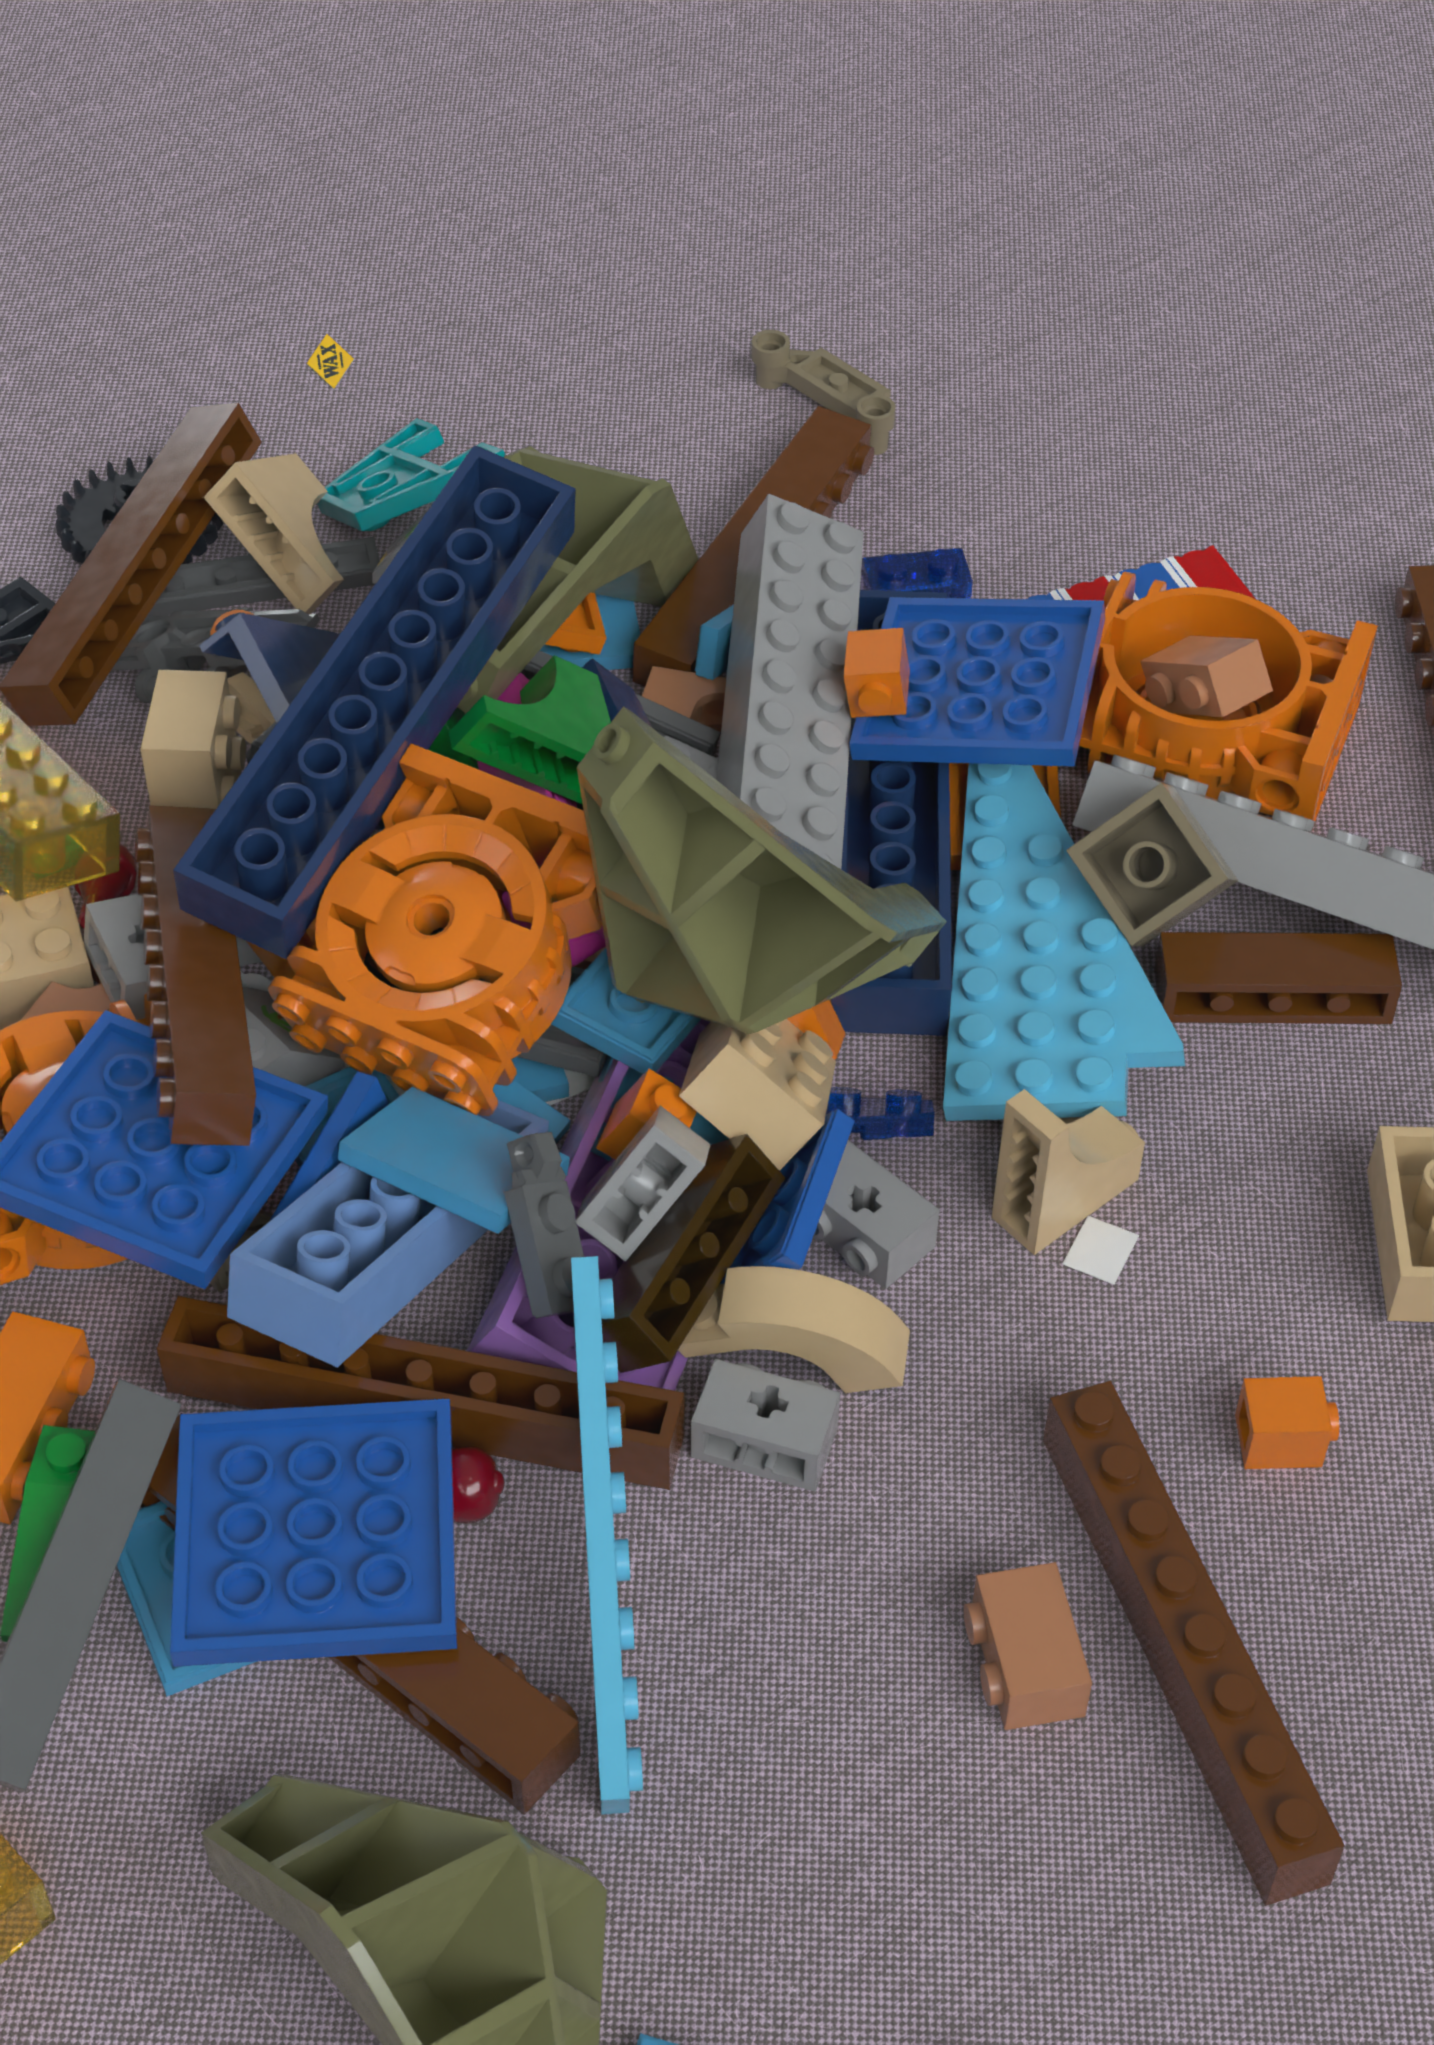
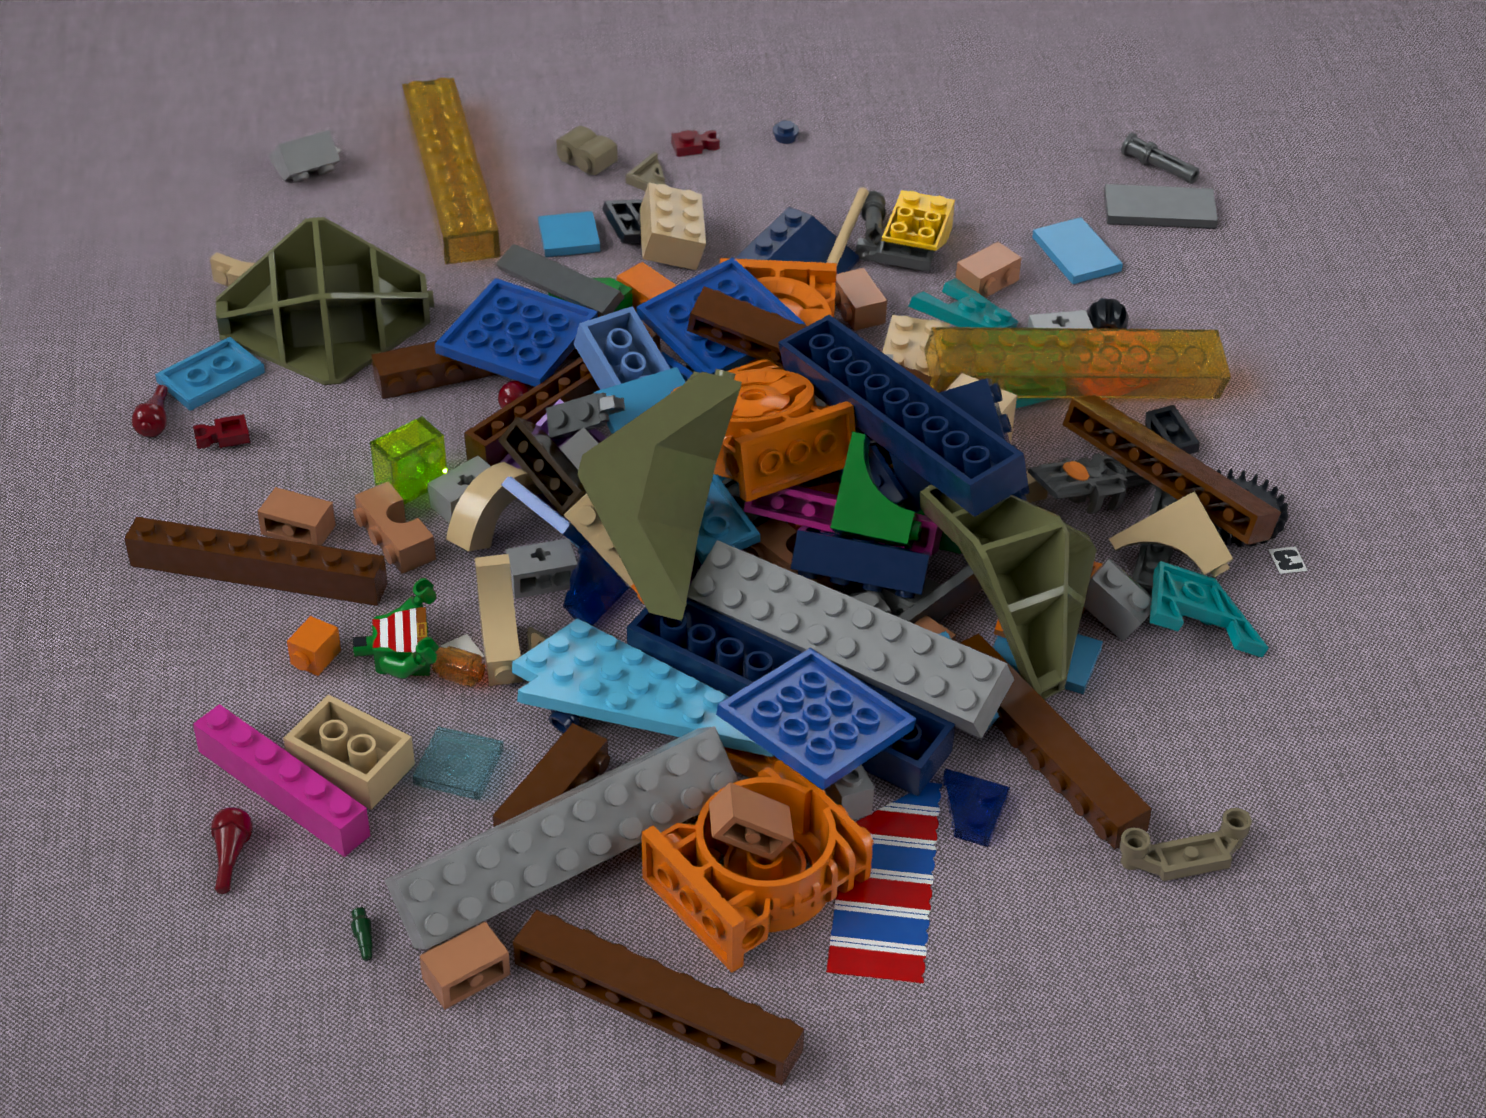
camera: 120 degrees right, 5 degrees down
(330, 361) = (1362, 643): yellow sticker -> none
(606, 1557) = (447, 396): medium azure plate -> none
(784, 1516) = (409, 458): none -> clear neon green brick
(876, 672) = (839, 661): orange brick -> none
(891, 1947) = (226, 432): none -> dark red plate
(916, 1522) = (383, 516): none -> nougat arch
(1151, 865) = (634, 727): dark tan brick -> none
(1157, 1207) = (459, 666): none -> clear orange brick
(1177, 1302) = (401, 637): none -> torso
(1314, 1120) = (458, 763): none -> clear light blue tile

